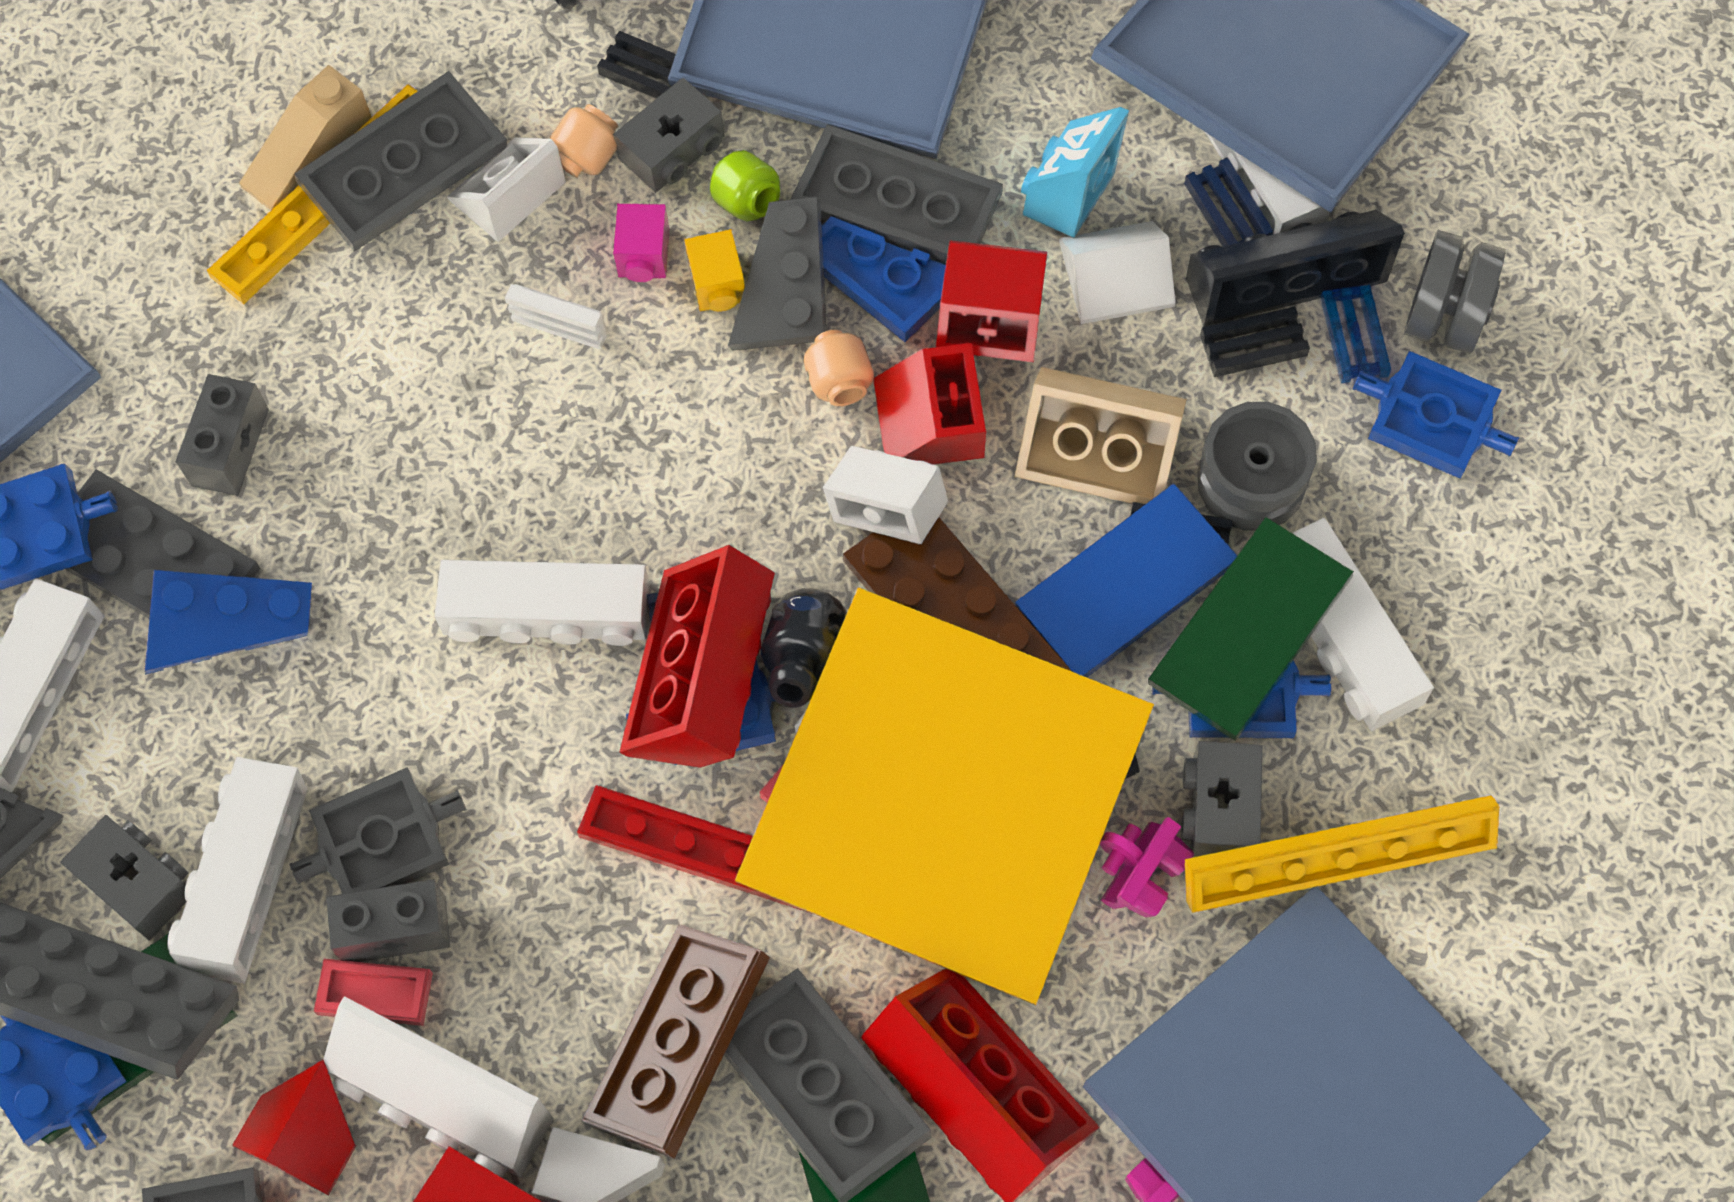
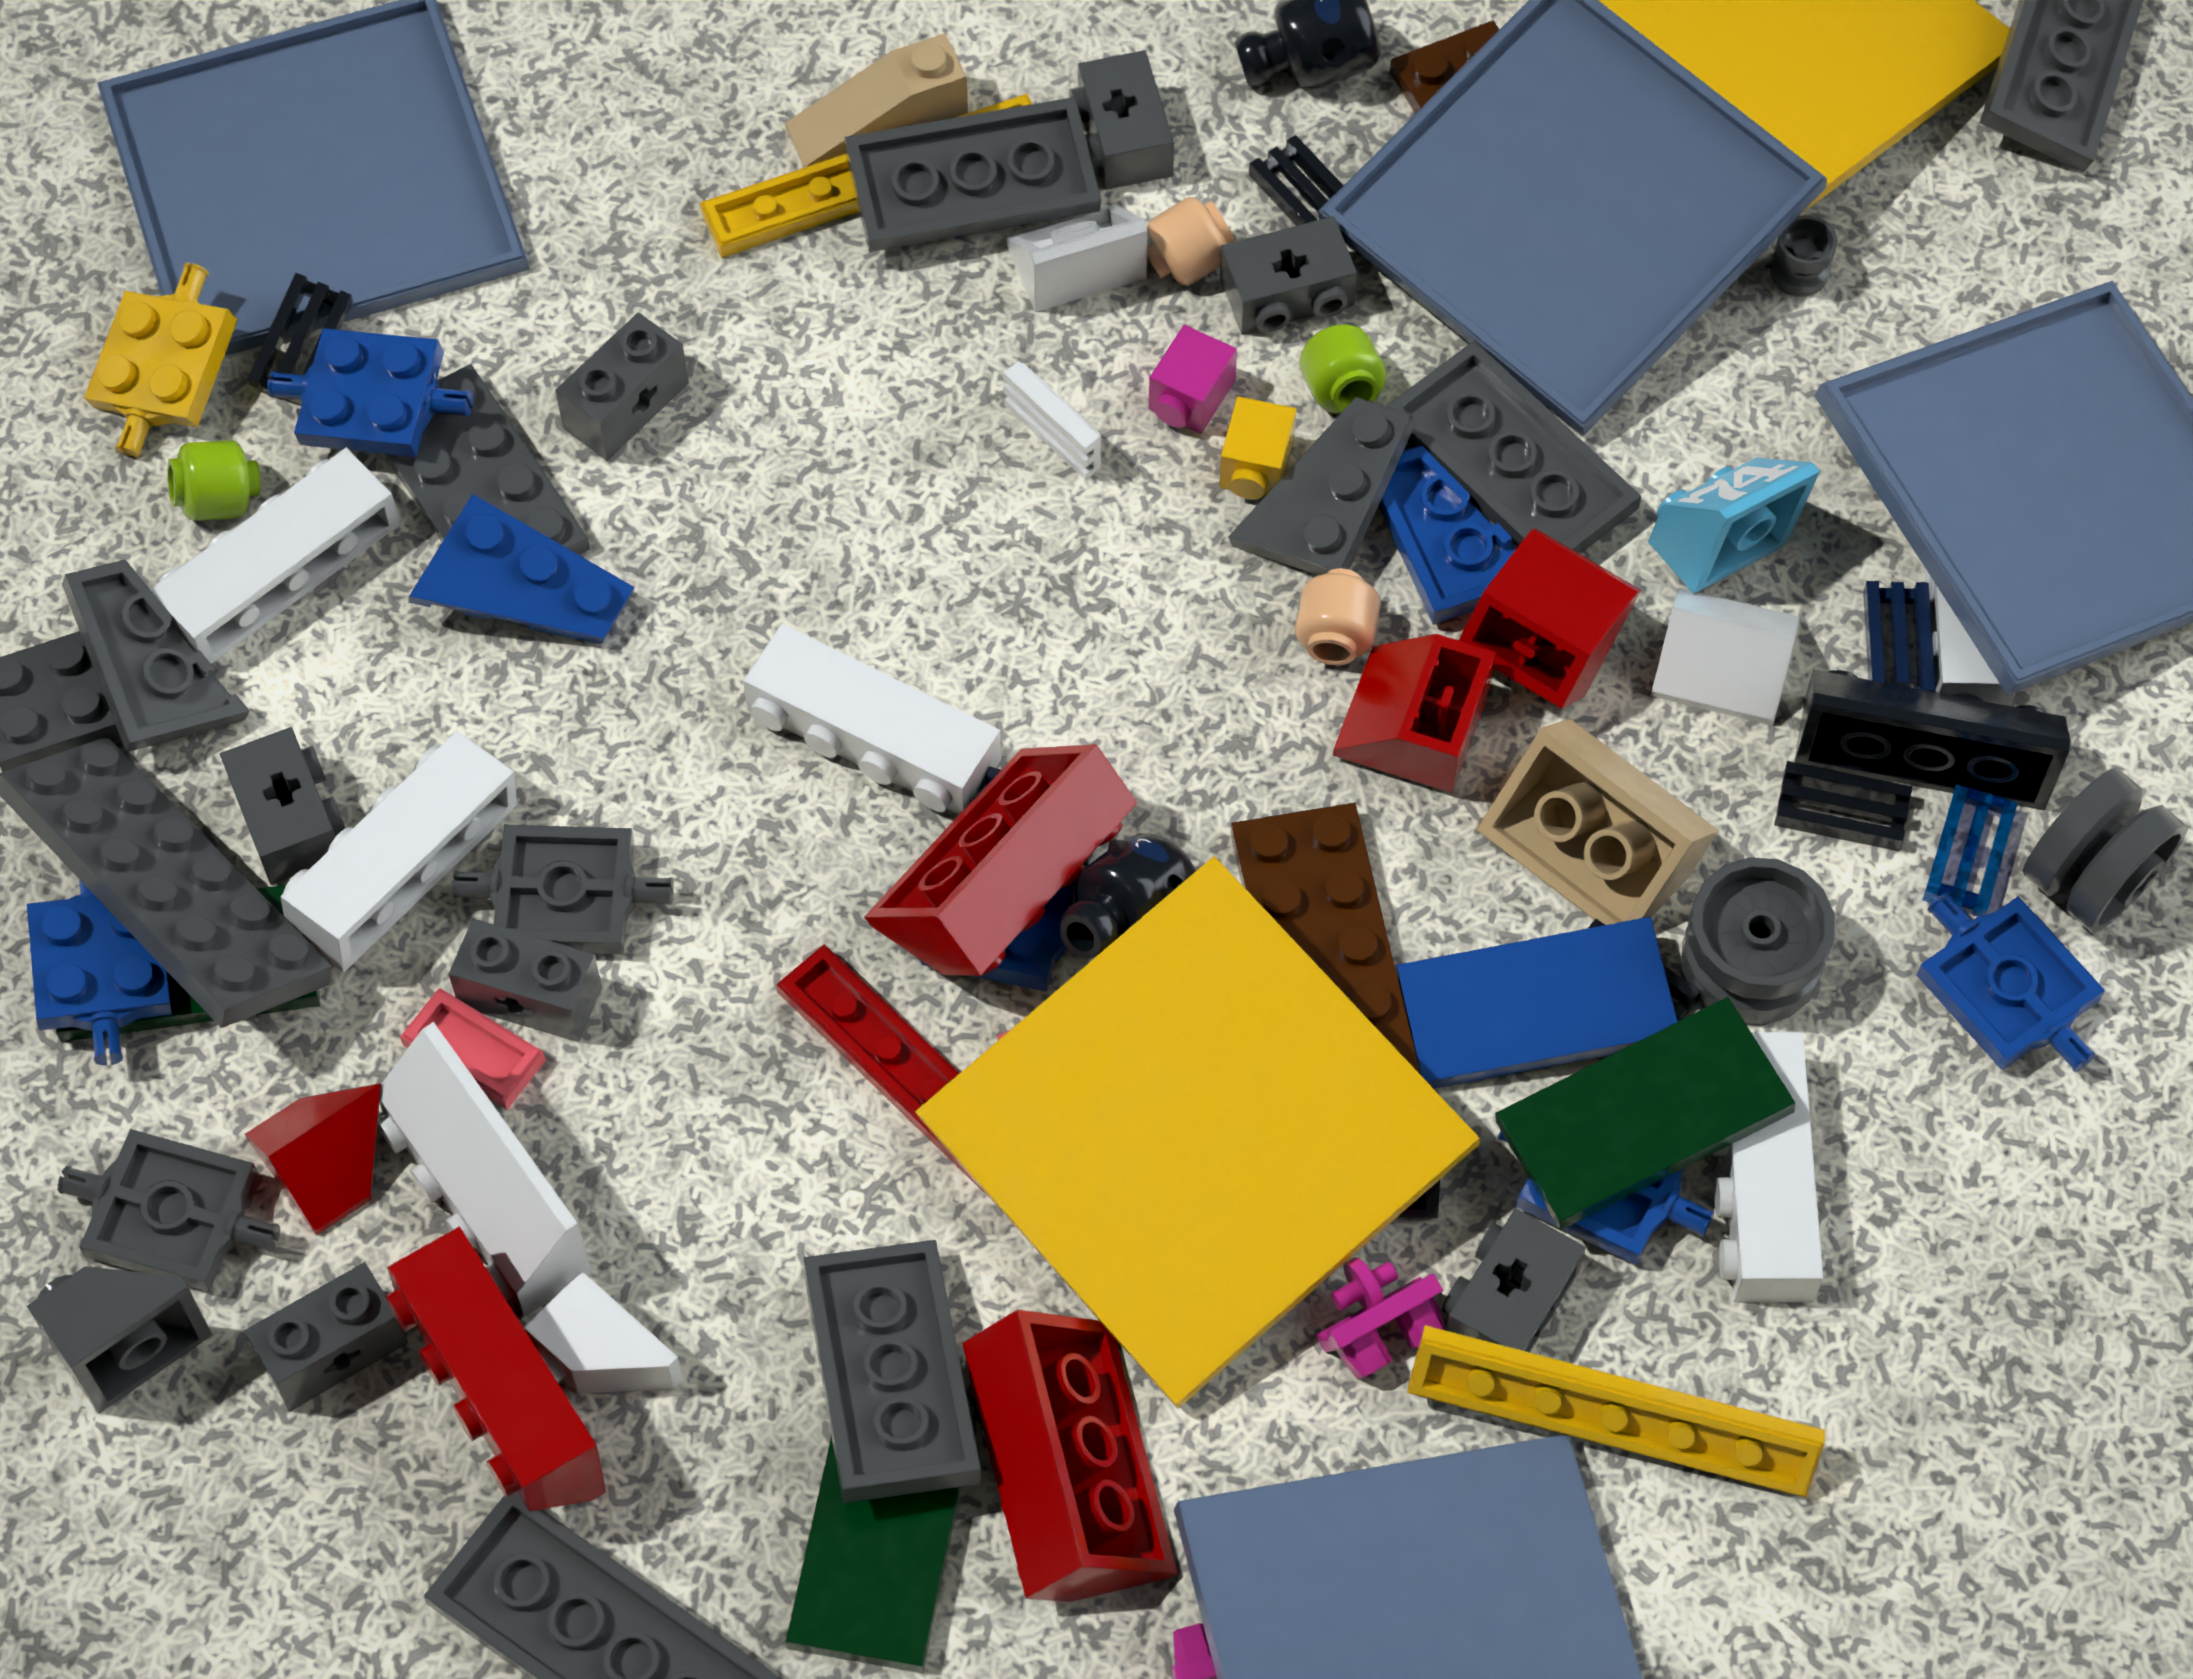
camera: 25 degrees right, 5 degrees down
(491, 71) = (1124, 120): none -> dark grey brick
(676, 1040) = (763, 1249): tile -> none
(886, 494) = (1311, 777): white brick -> none

